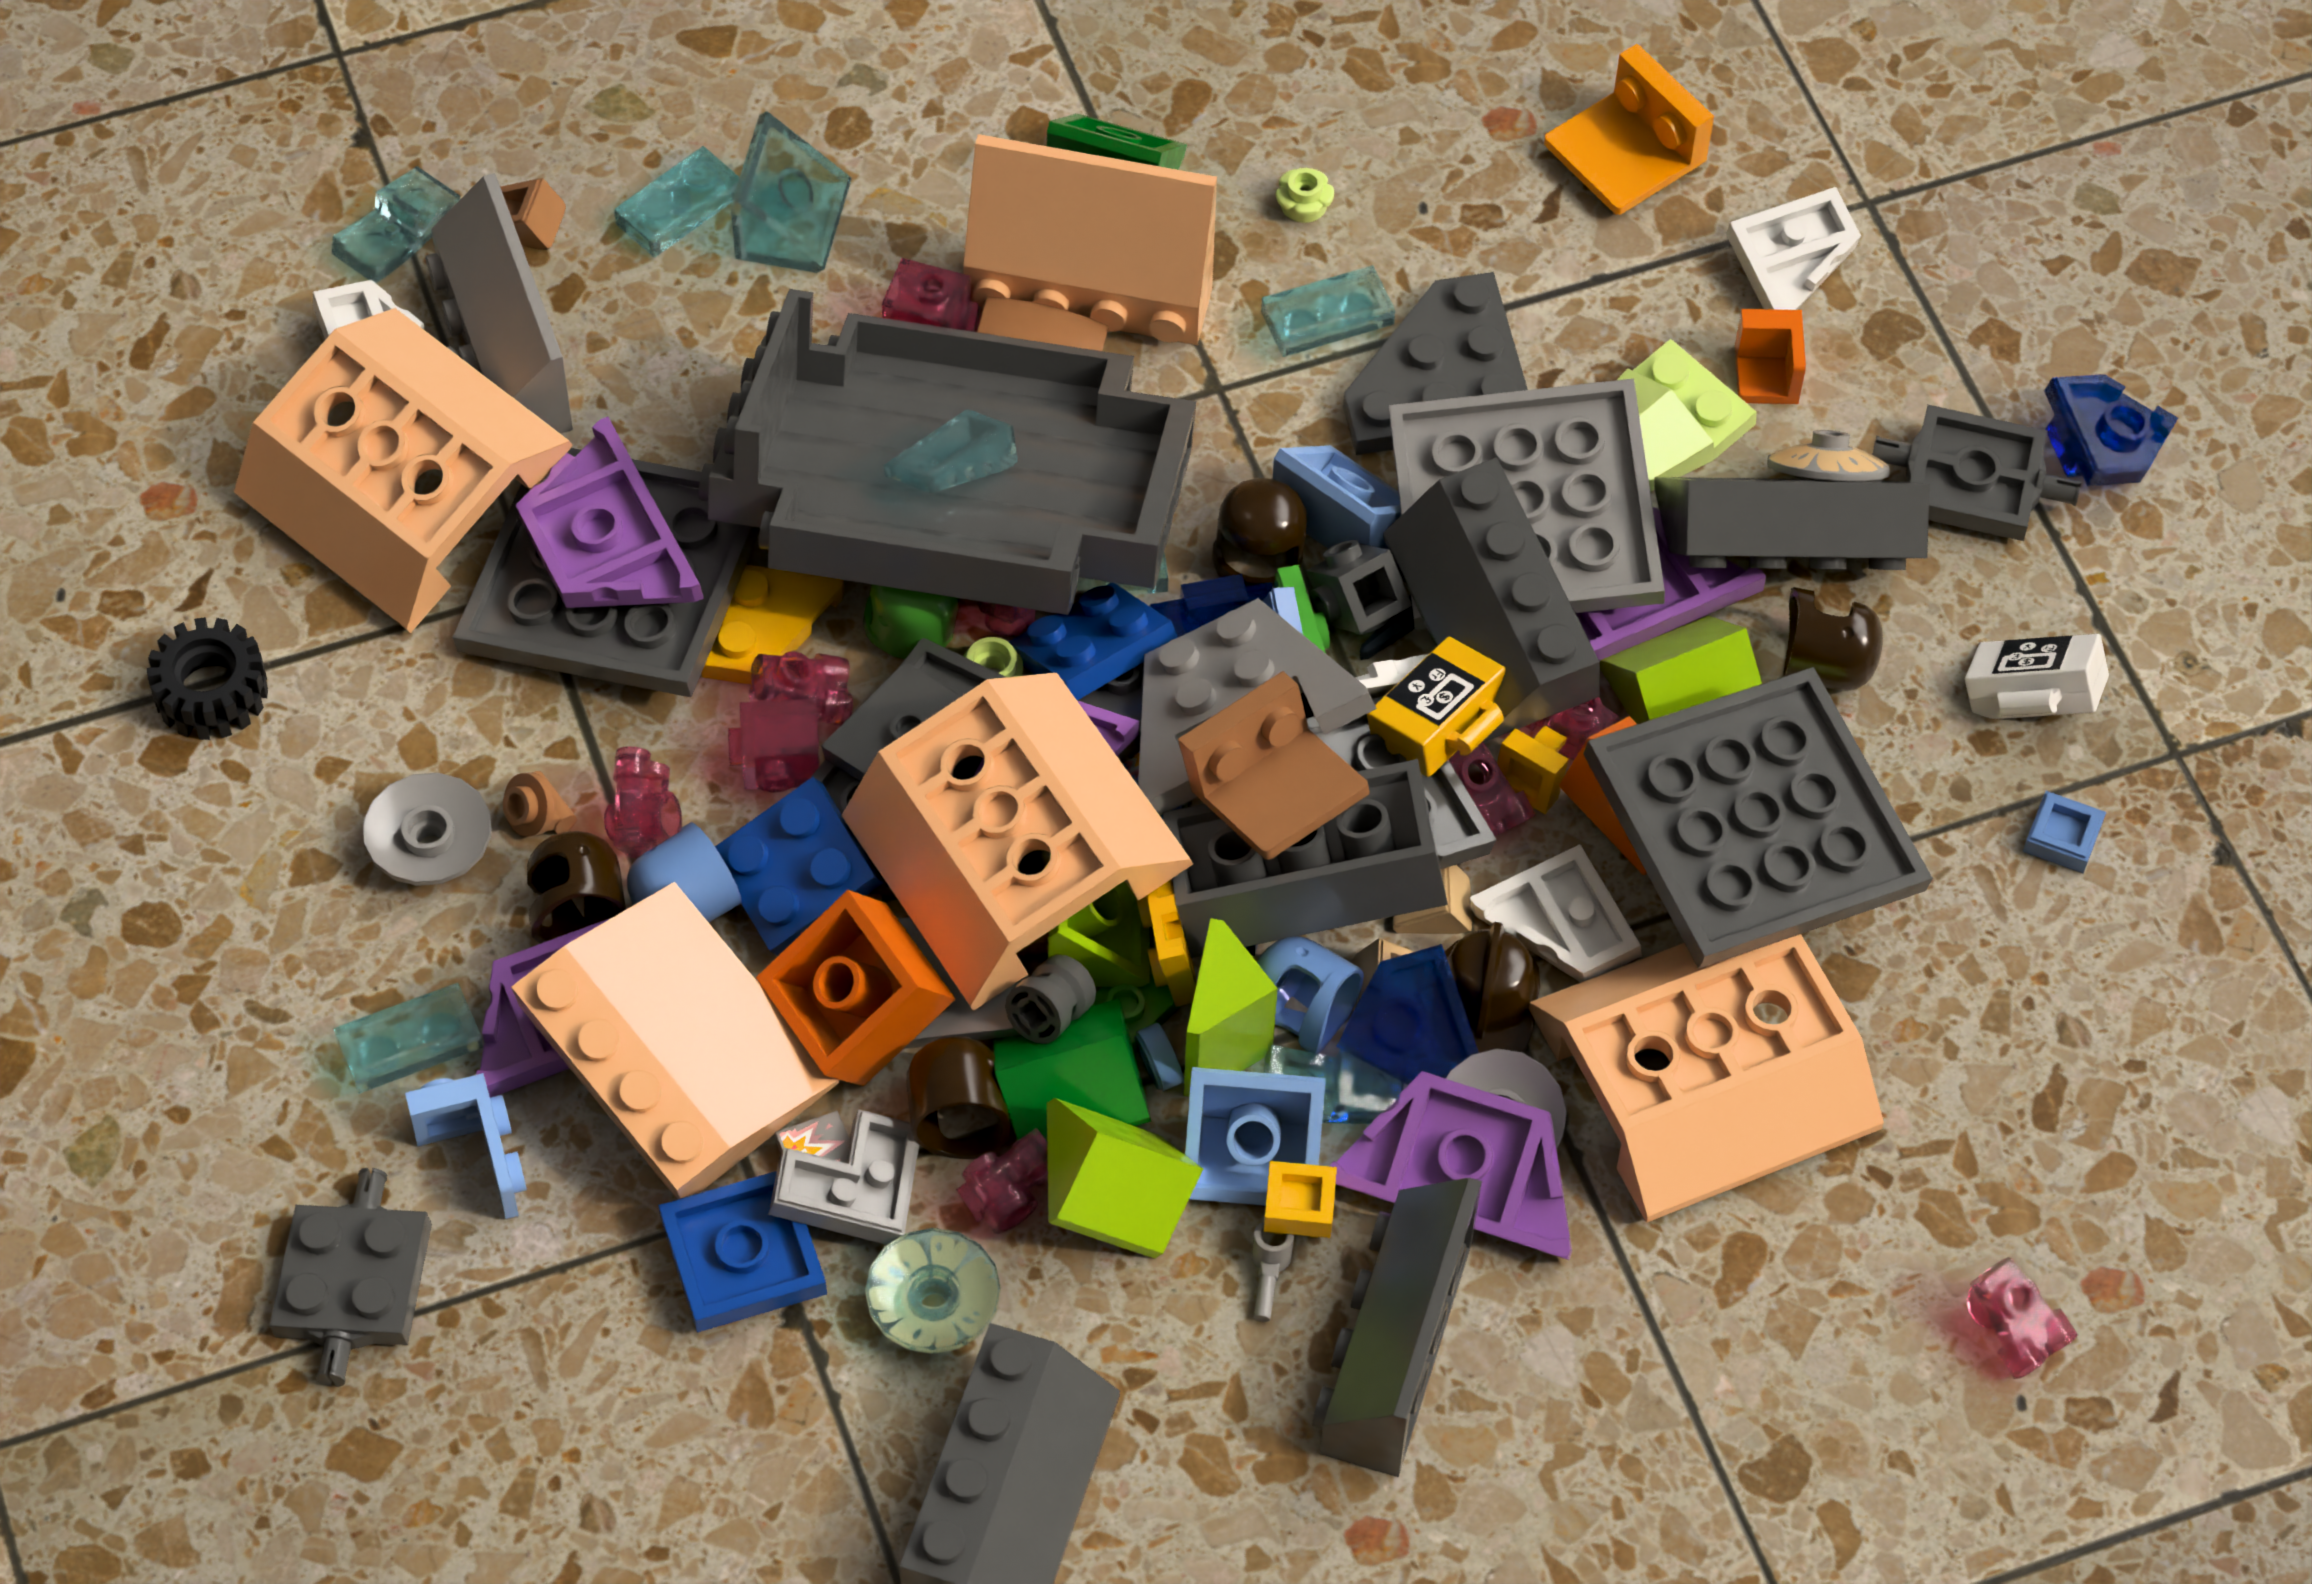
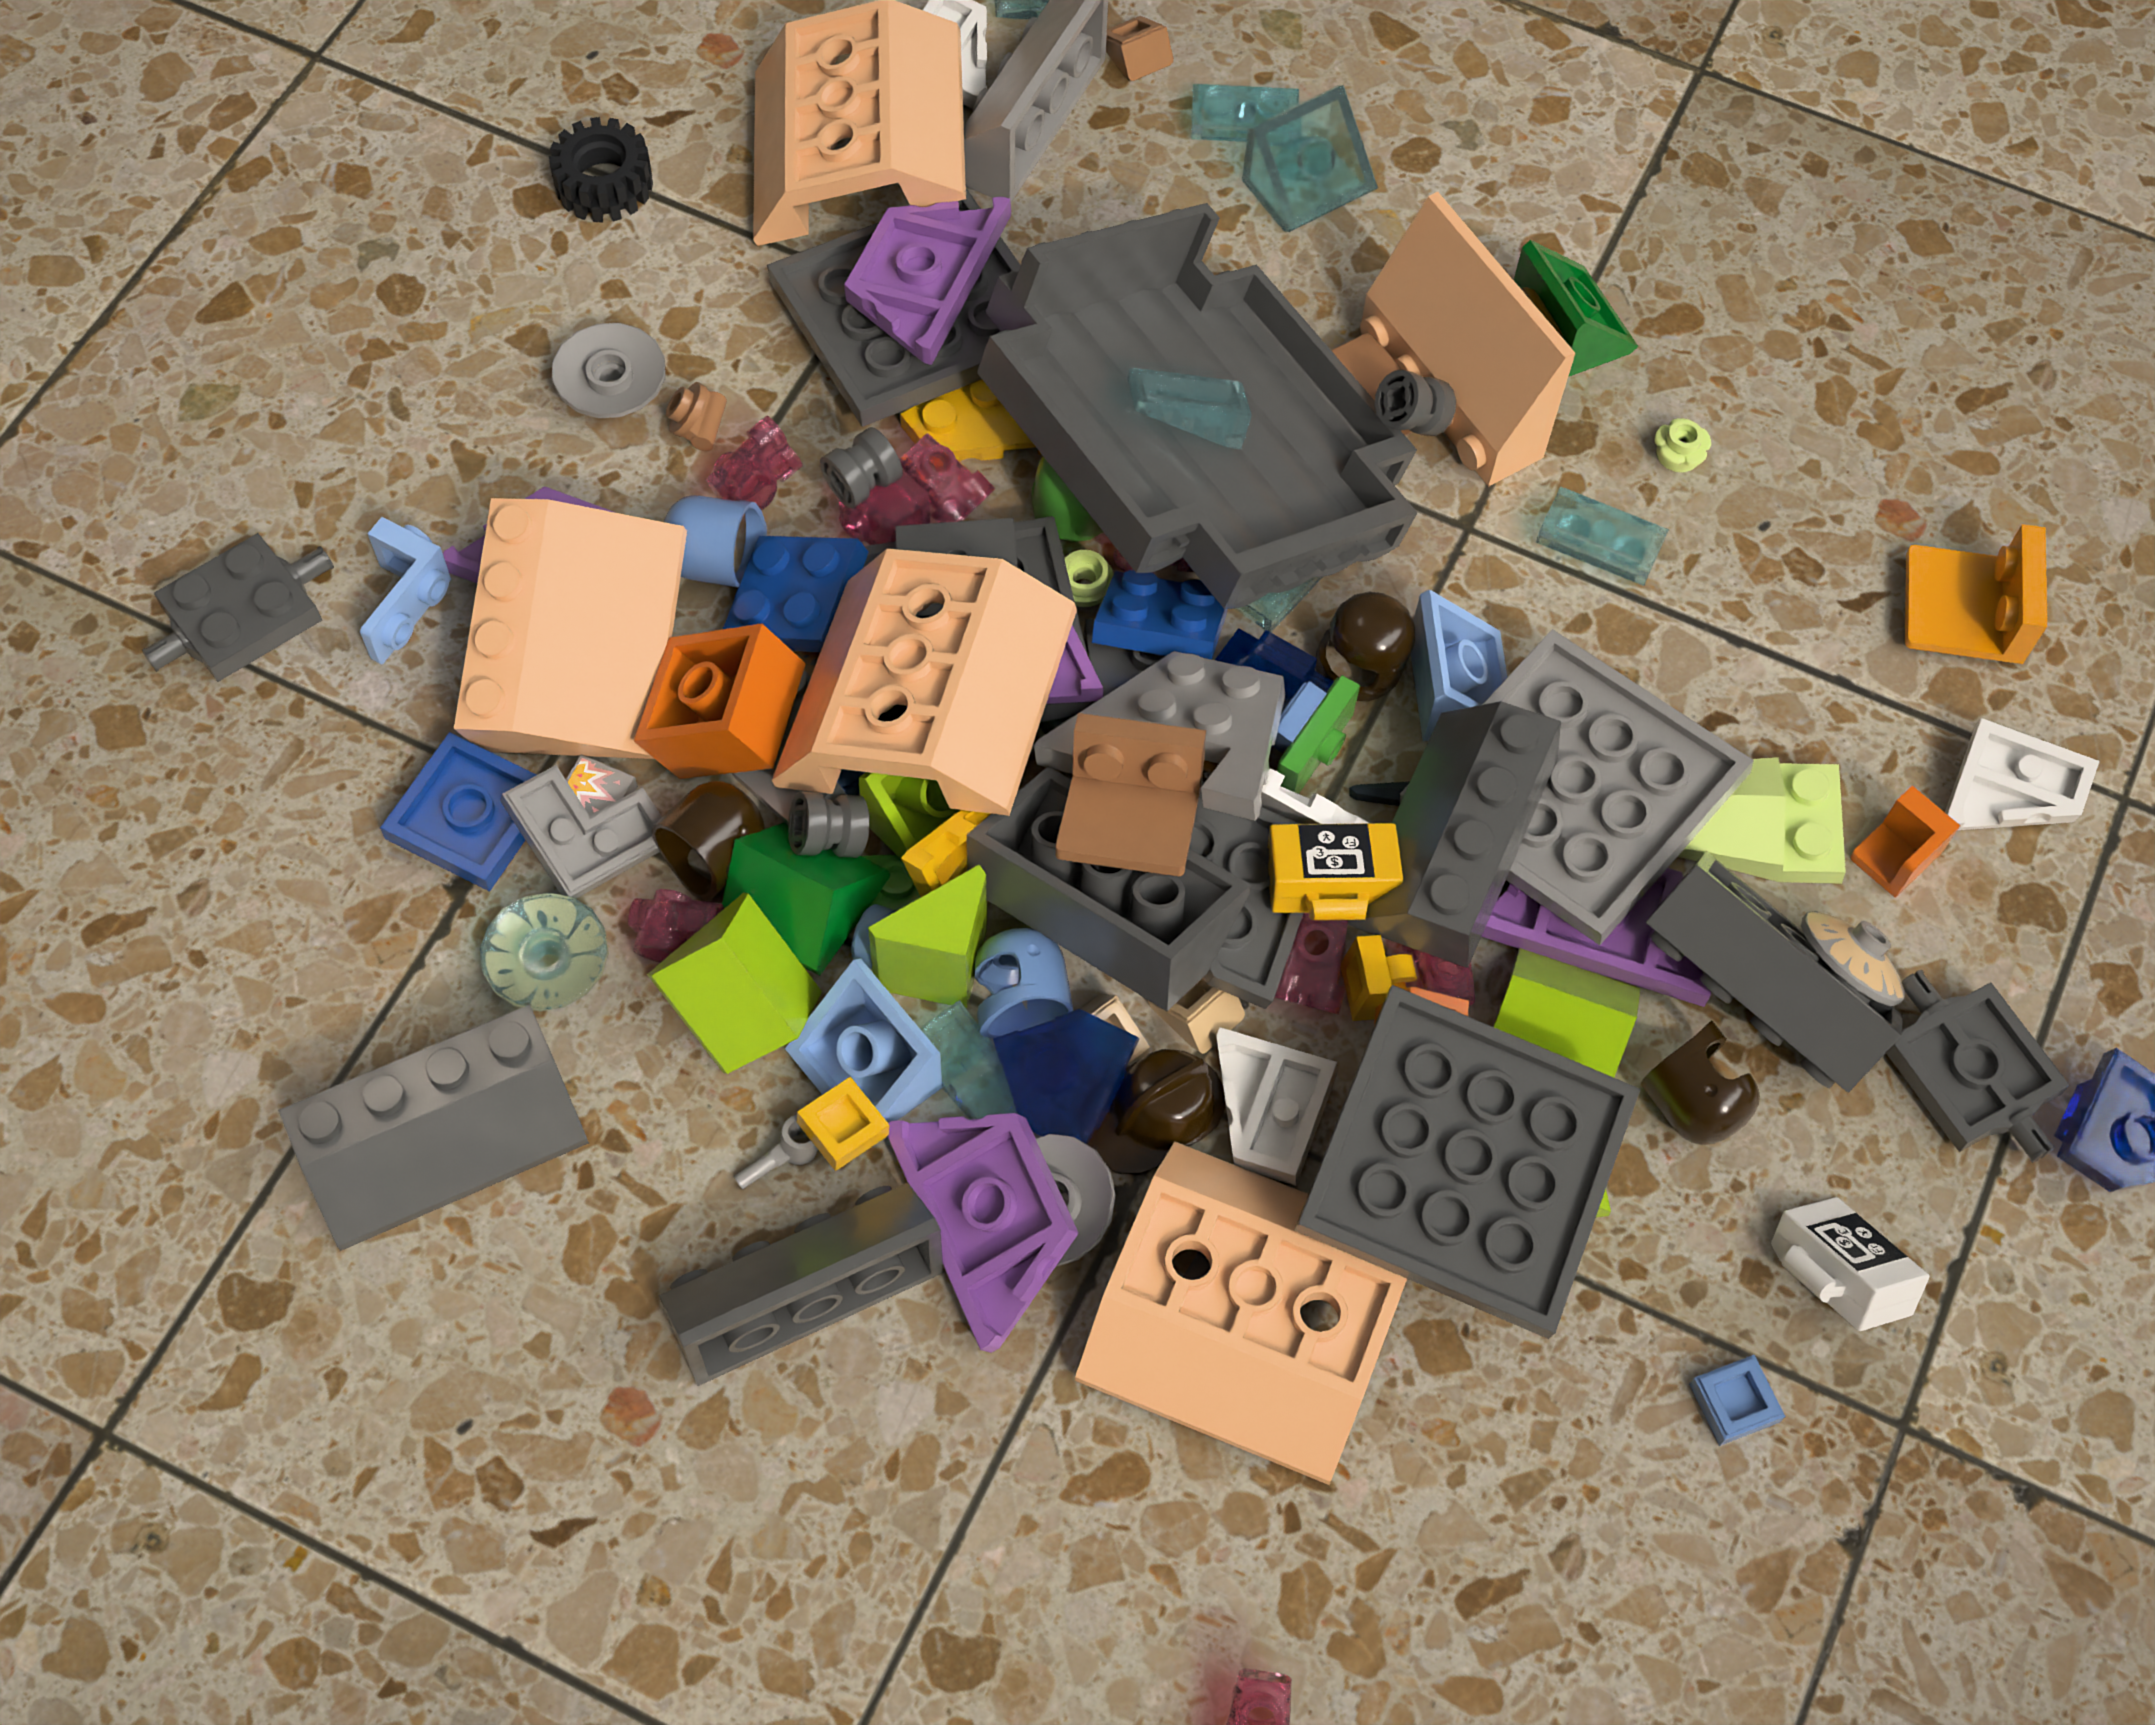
camera: 45 degrees right, 5 degrees up
(408, 1038) = (441, 489): clear light blue plate -> none
(569, 868) = (656, 478): dark brown helmet -> none
(755, 724) = (859, 469): none -> dark grey wheel
(930, 297) = (1324, 300): clear pink brick -> none
(1113, 314) = (1415, 403): none -> dark grey wheel
(1357, 587) = (1382, 758): dark grey brick -> none
(1444, 349) = (1656, 636): dark grey plate -> none

